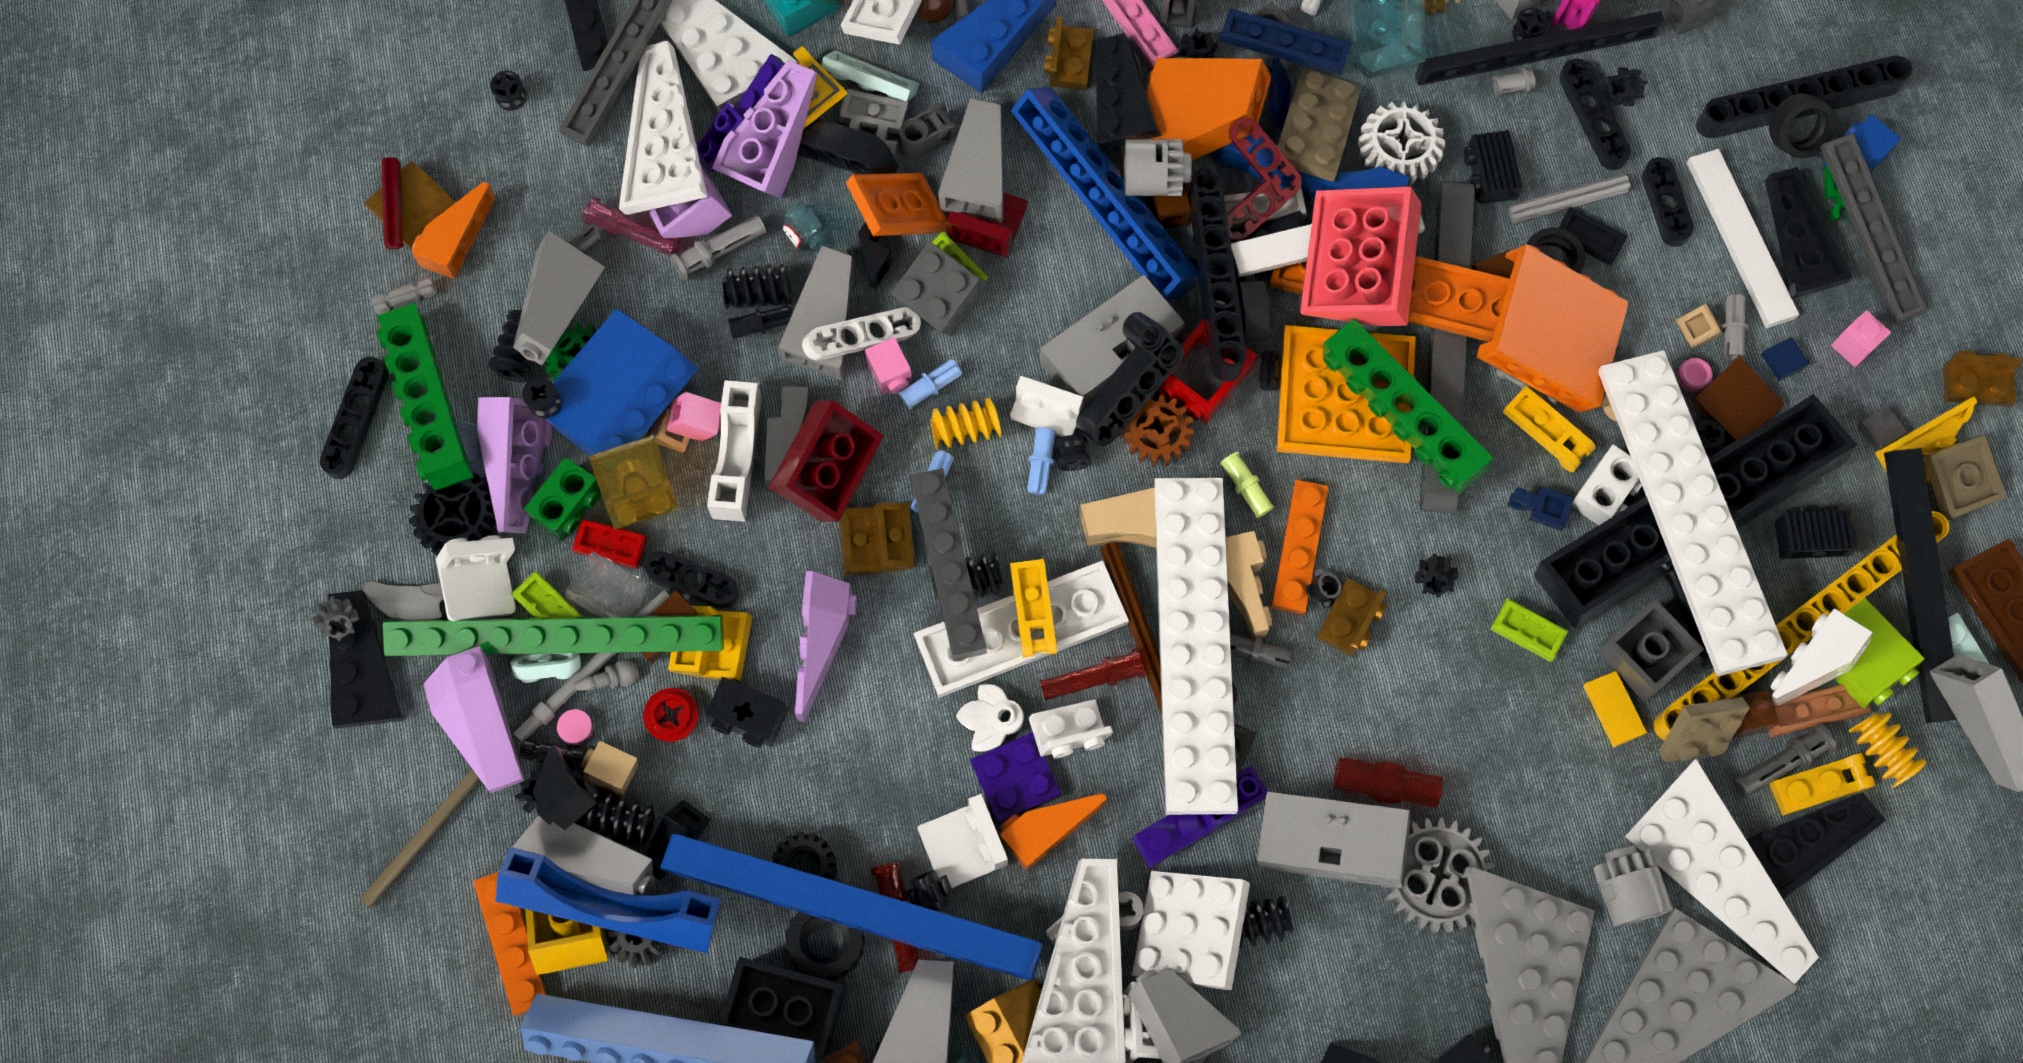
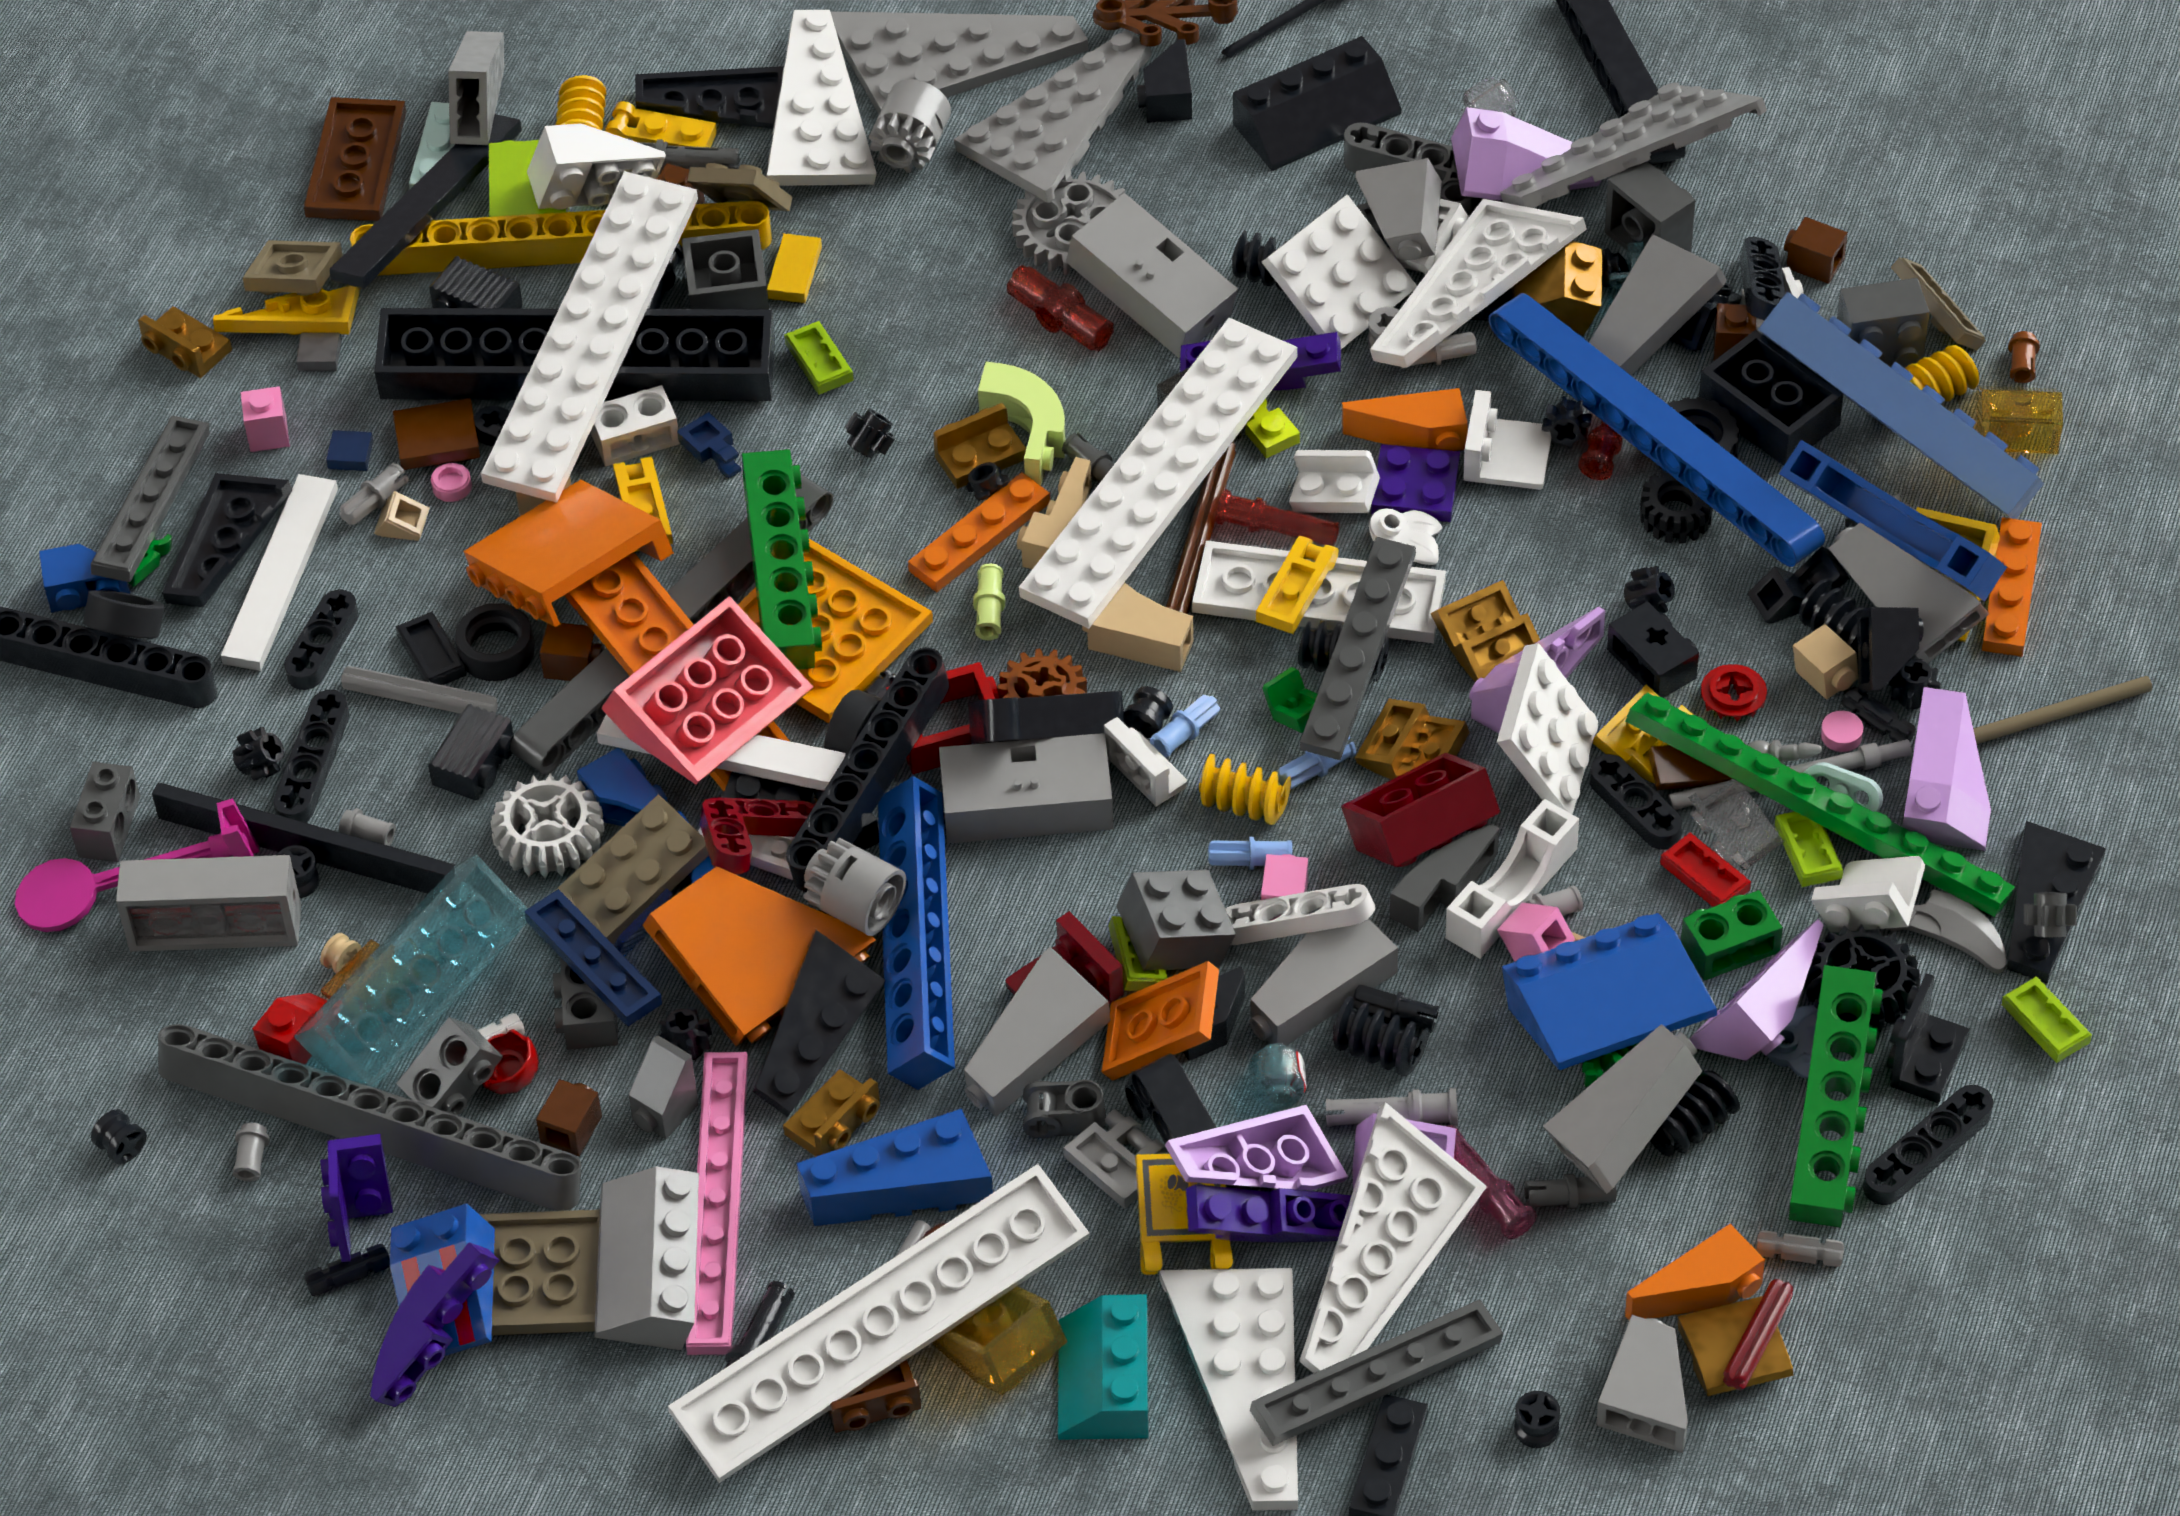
camera: 145 degrees left, 20 degrees down
(314, 556) = (2046, 1019): none -> lime plate
(385, 483) = (1924, 1047): none -> black bracket
(451, 142) = (1646, 1387): none -> light grey slope
(542, 406) = (1696, 1005): black wheel -> none
(633, 482) = (1644, 887): clear yellow slope -> none
(700, 458) = (1566, 900): none -> light grey pin
(770, 568) = (1547, 729): none -> white plate
(777, 763) = (1651, 587): none -> black gear
(869, 76) = (1108, 1227): light aqua plate -> none
(877, 661) = (1484, 629): none -> pearl gold slope
(975, 518) = (1289, 699): none -> green bracket
(1149, 763) = (1271, 431): none -> neon yellow plate
(1334, 672) = (1032, 406): none -> yellowish green arch

